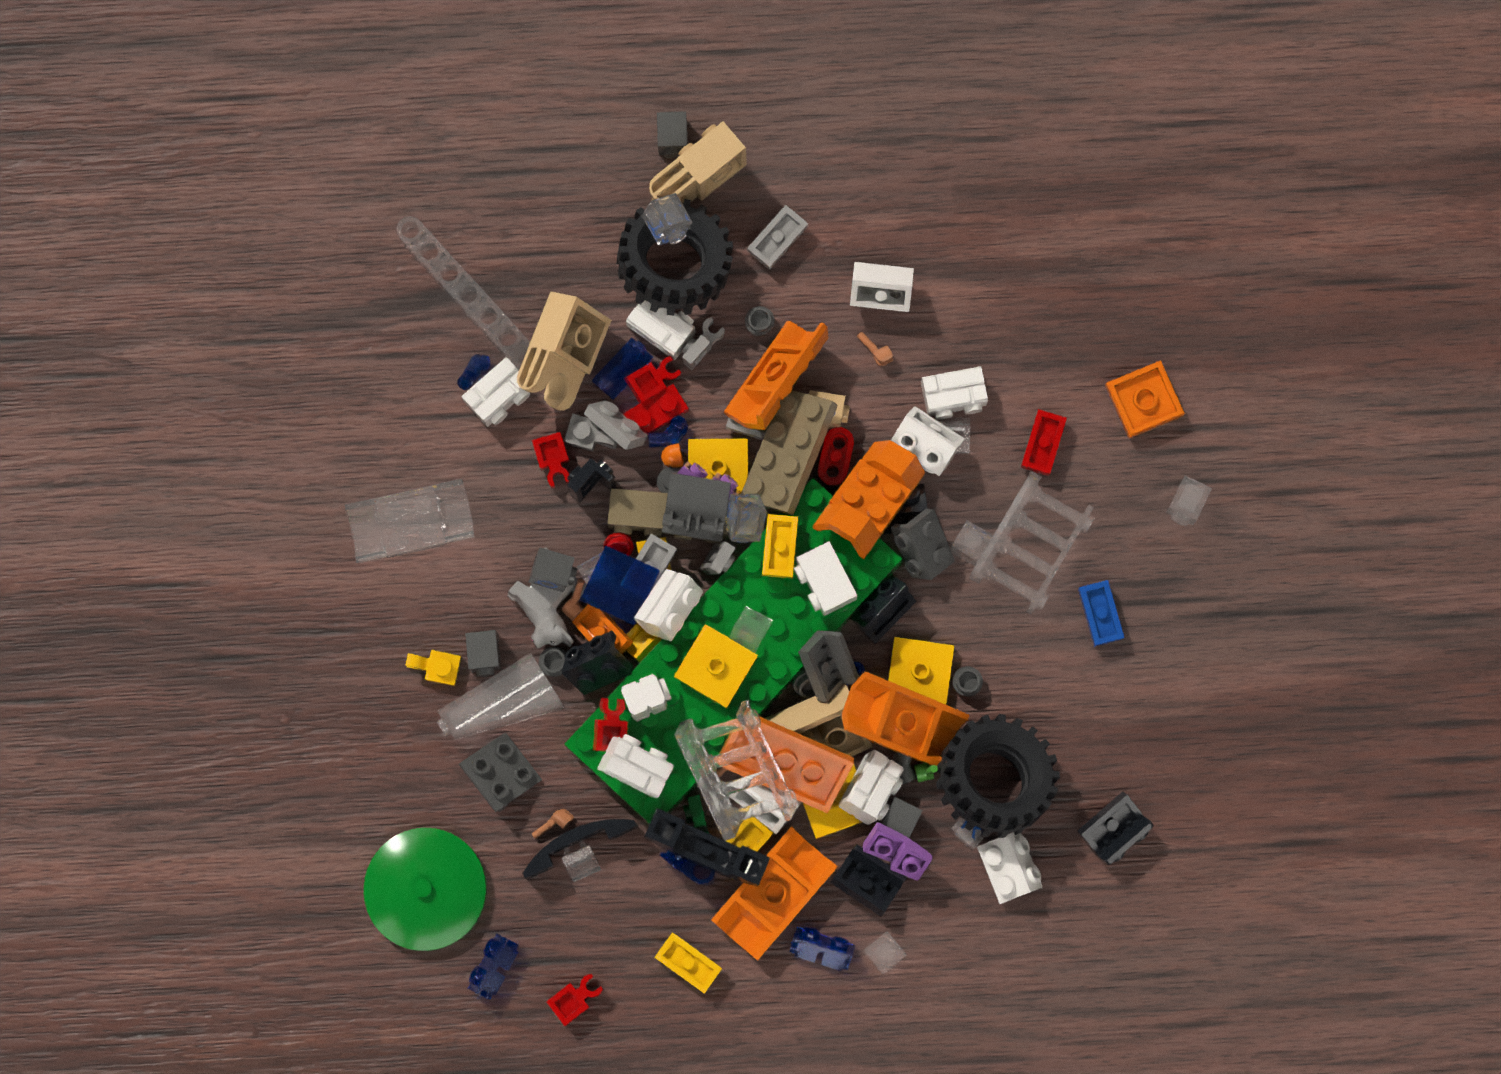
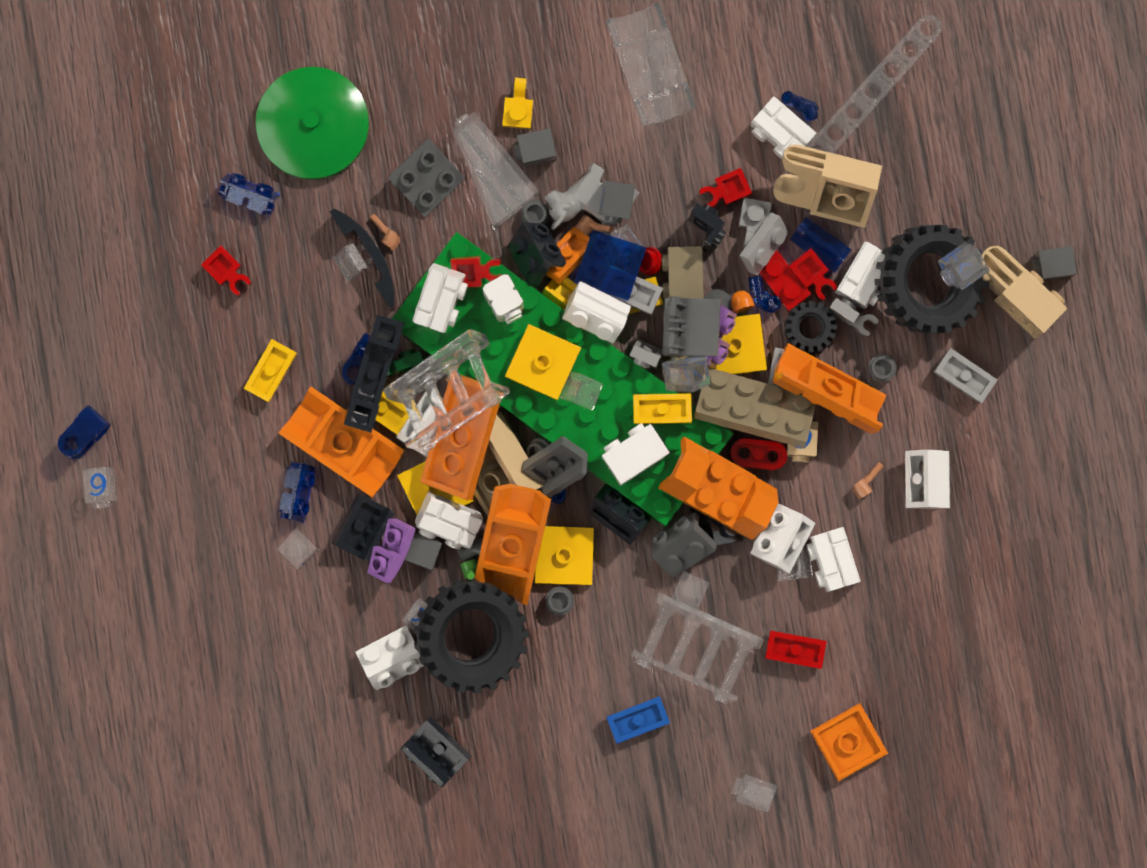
camera: 75 degrees right, 5 degrees up
(701, 372) = (818, 312): none -> black tyre

